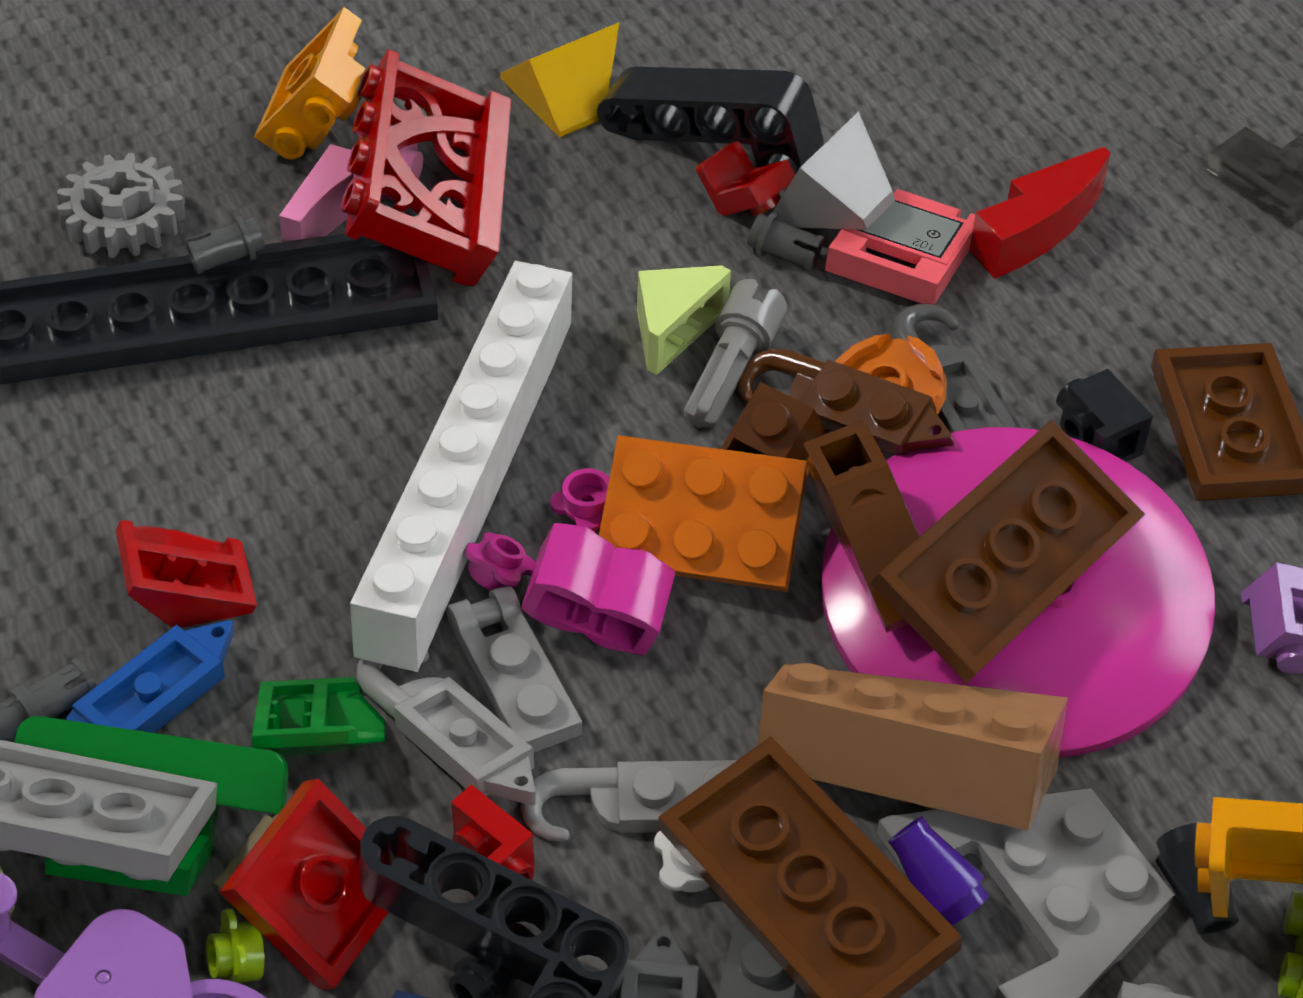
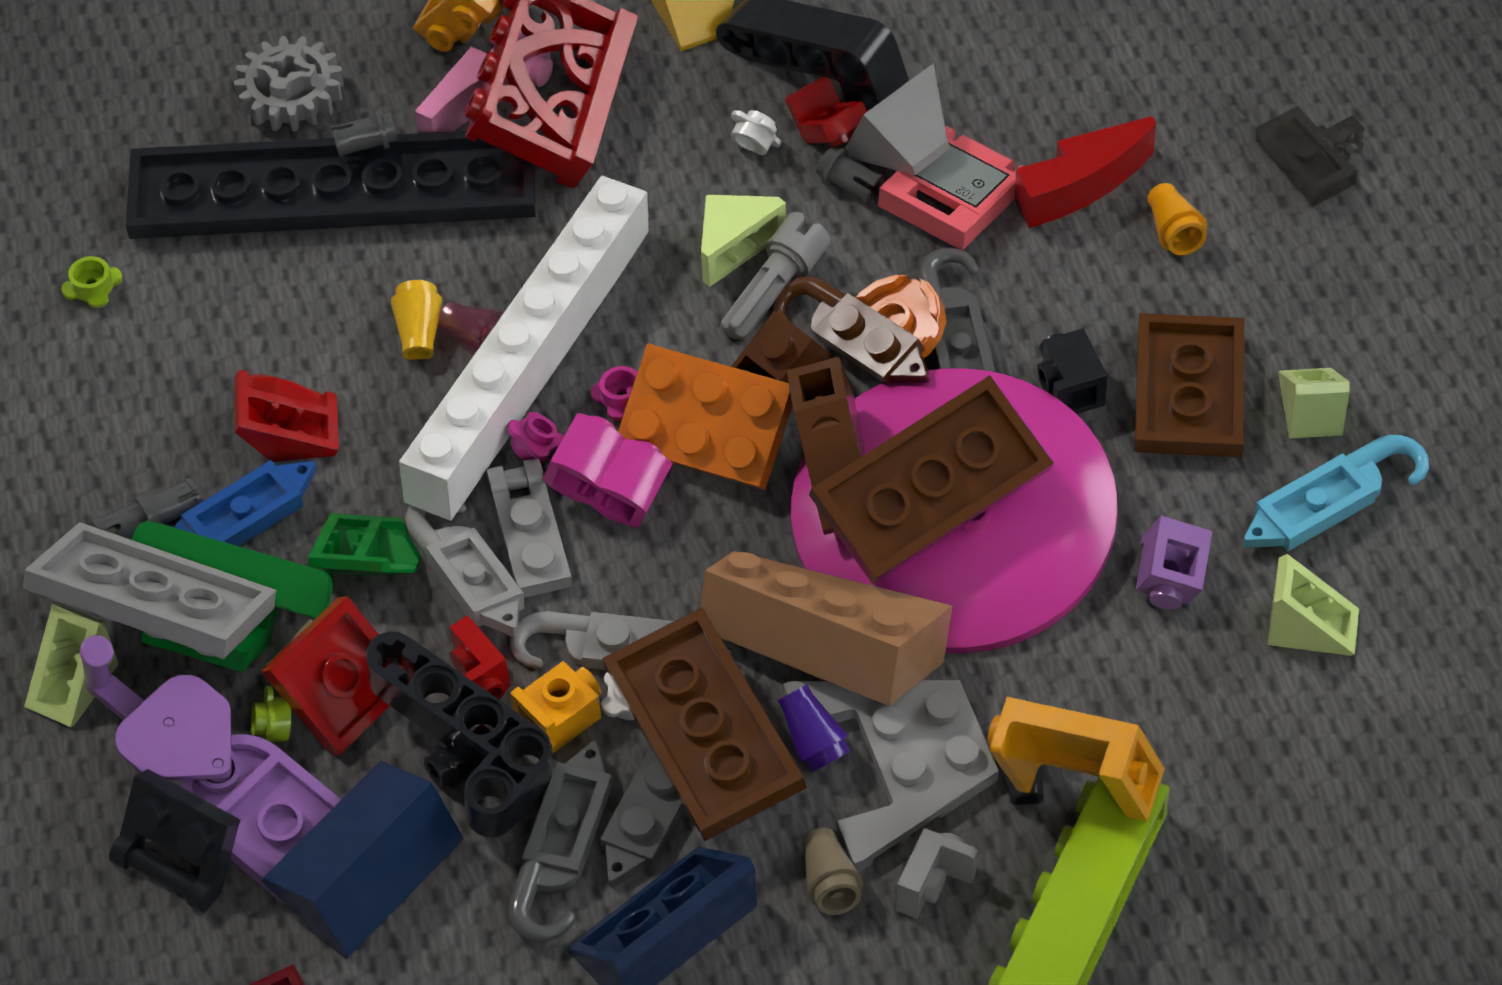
camera: 15 degrees right, 5 degrees up
(323, 438) = (416, 314): none -> yellow cone
(392, 443) = (468, 323): none -> clear pink cone
(628, 887) = (560, 703): none -> light orange brick
(668, 206) = (754, 131): none -> white plate
(1158, 253) = (1177, 222): none -> light orange cone

